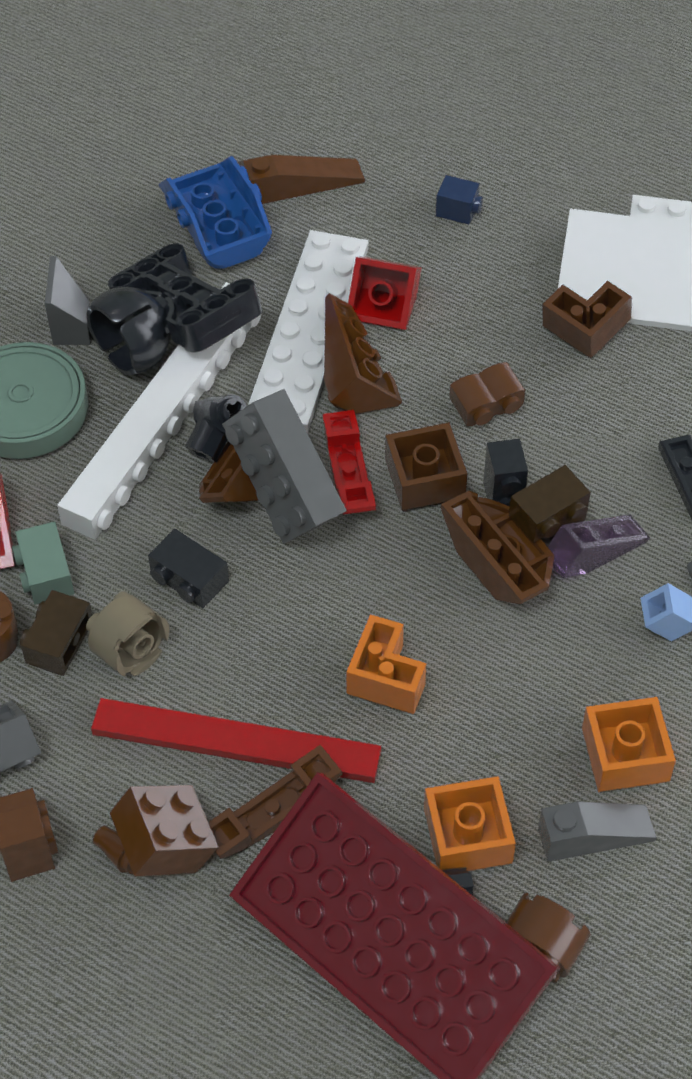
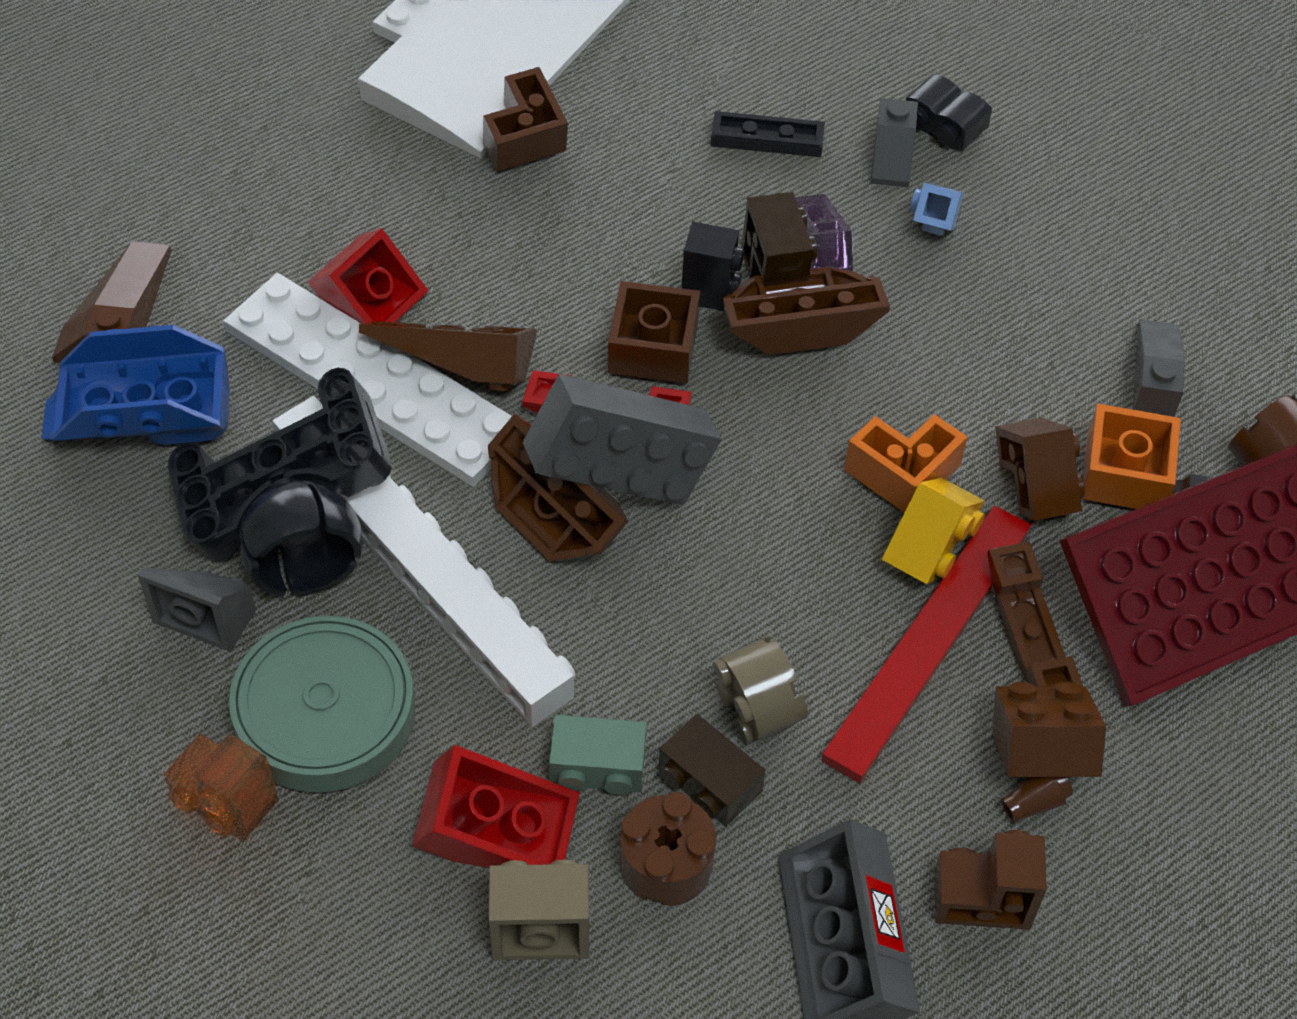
camera: 70 degrees left, 0 degrees up
(188, 568) = (679, 605): black brick -> none
(209, 434) = (484, 502): black piece -> none
(330, 699) = (931, 527): none -> yellow brick
(424, 756) = (1043, 466): none -> reddish brown brick
(458, 200) = (271, 169): dark blue brick -> none
(487, 394) = (575, 248): reddish brown brick -> none
(628, 744) = (1081, 297): orange brick -> none

